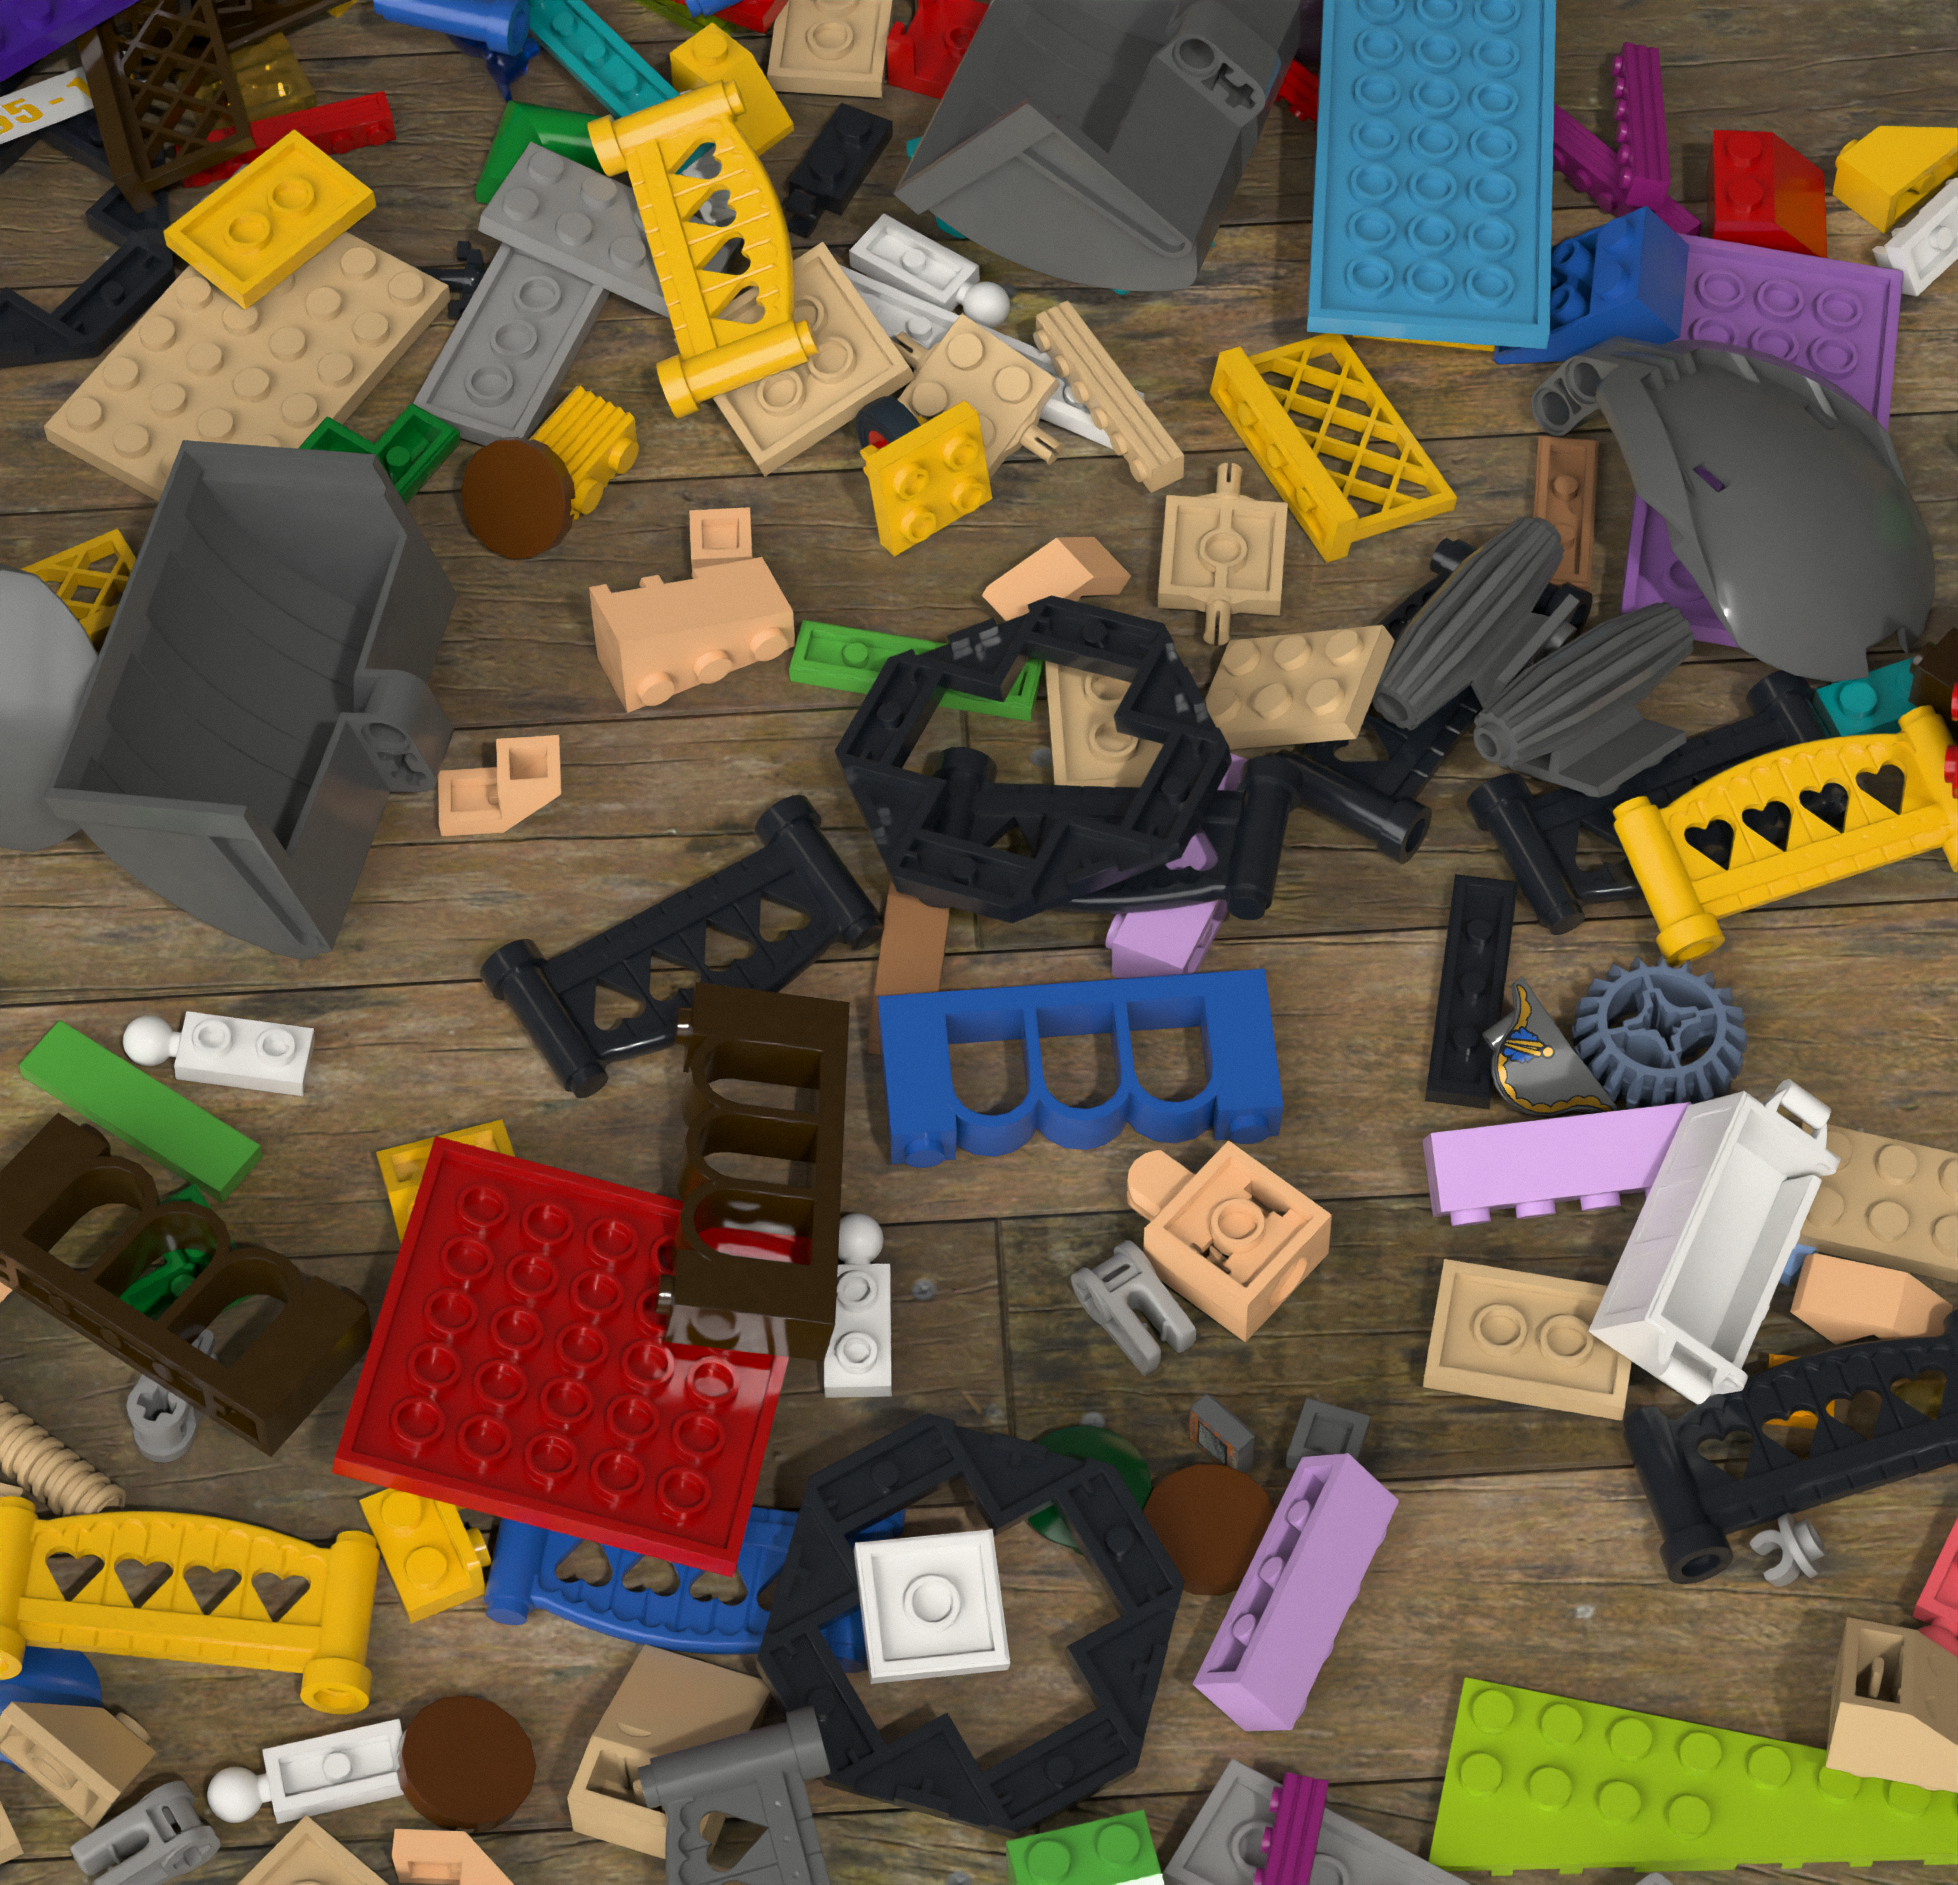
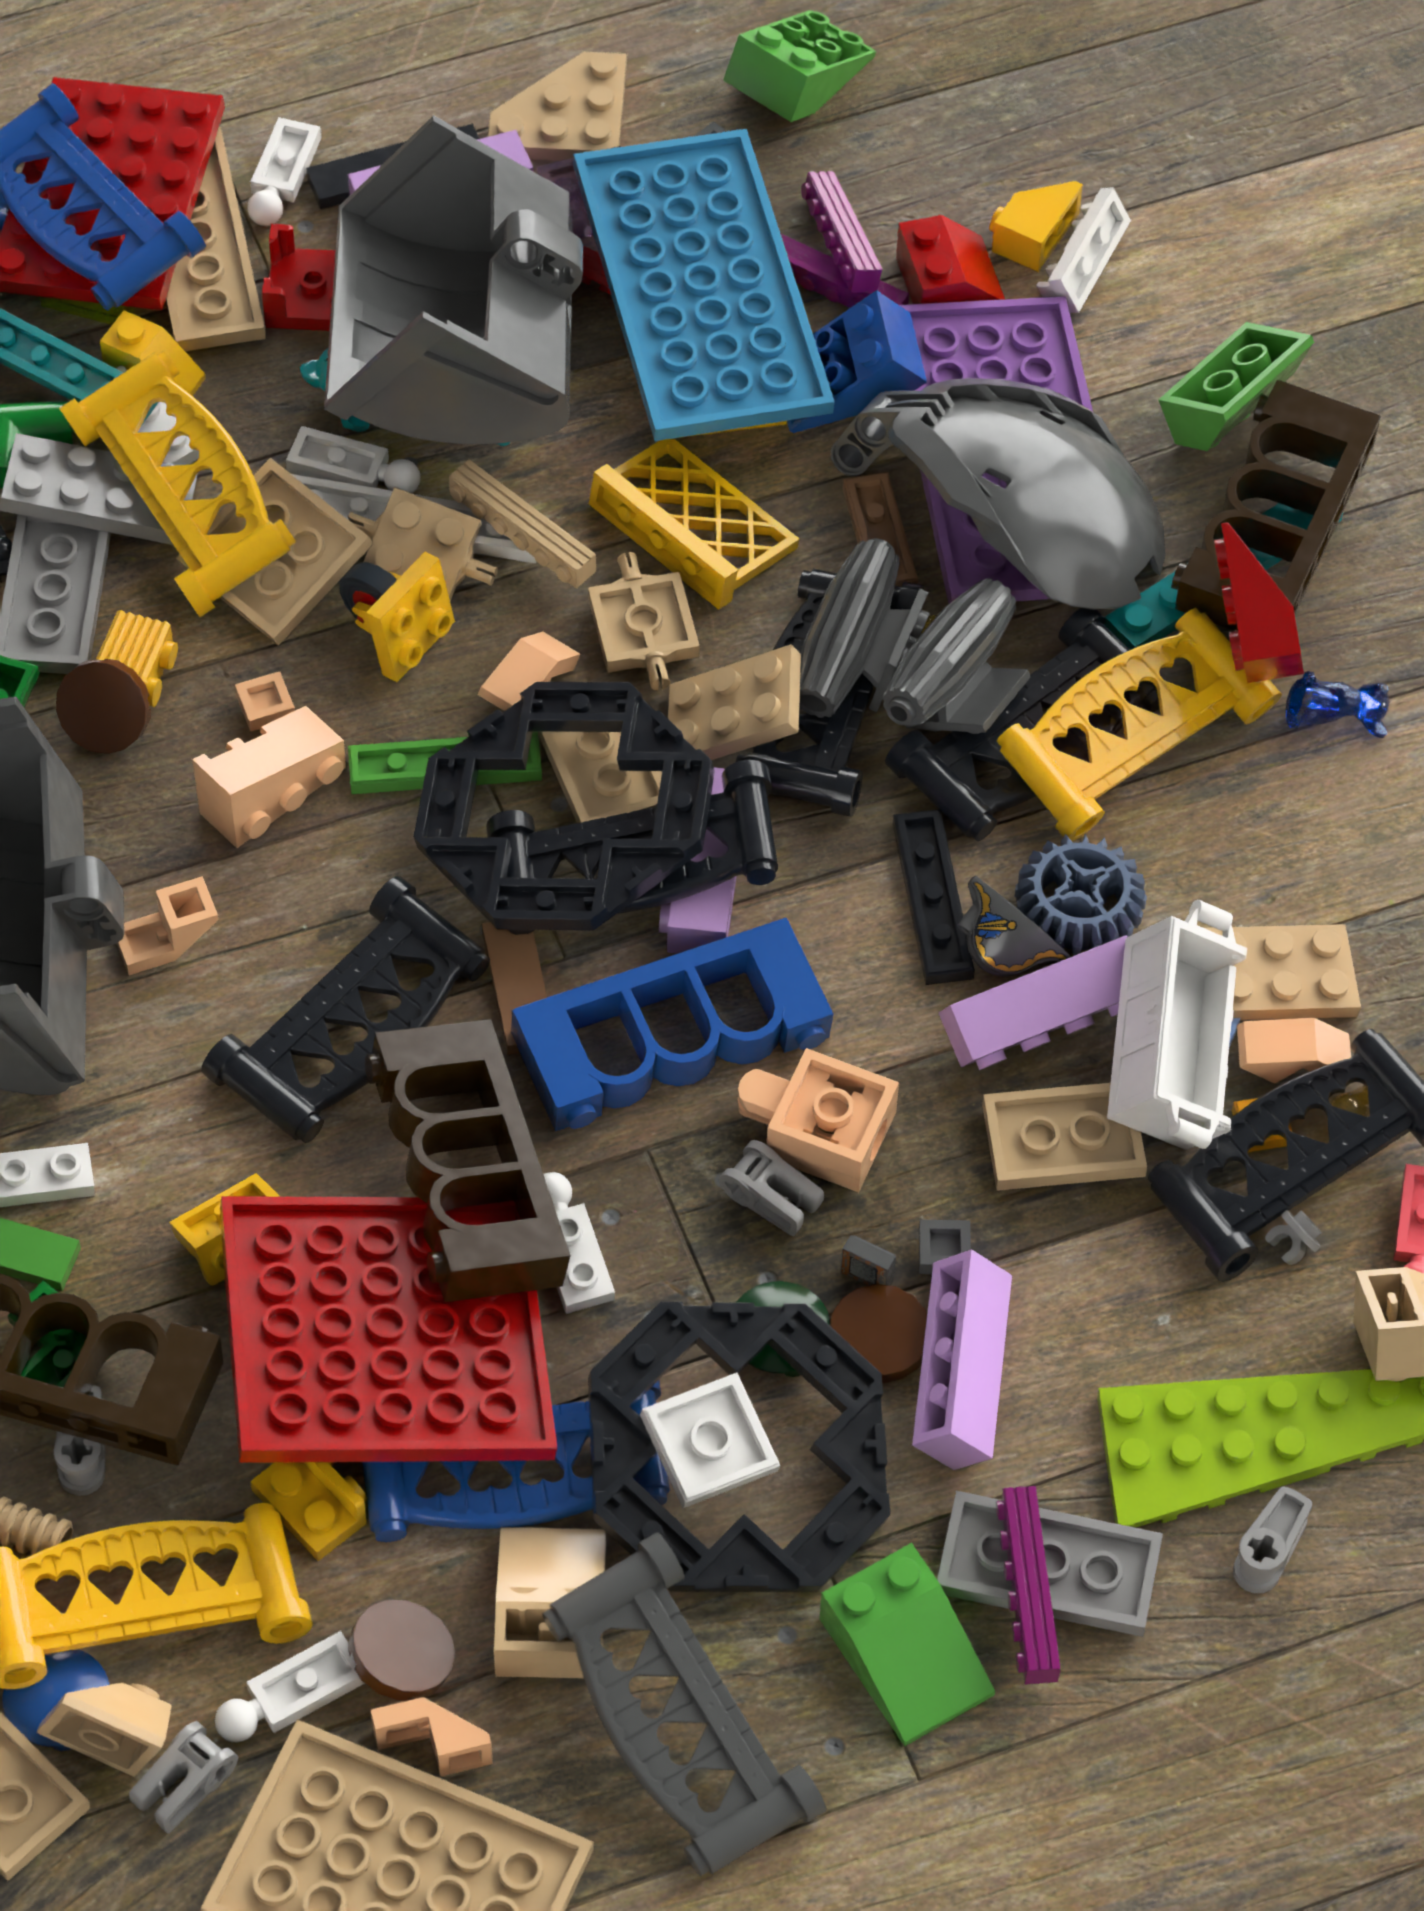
camera: 20 degrees left, 0 degrees up
(835, 166) = (250, 395): black plate -> none

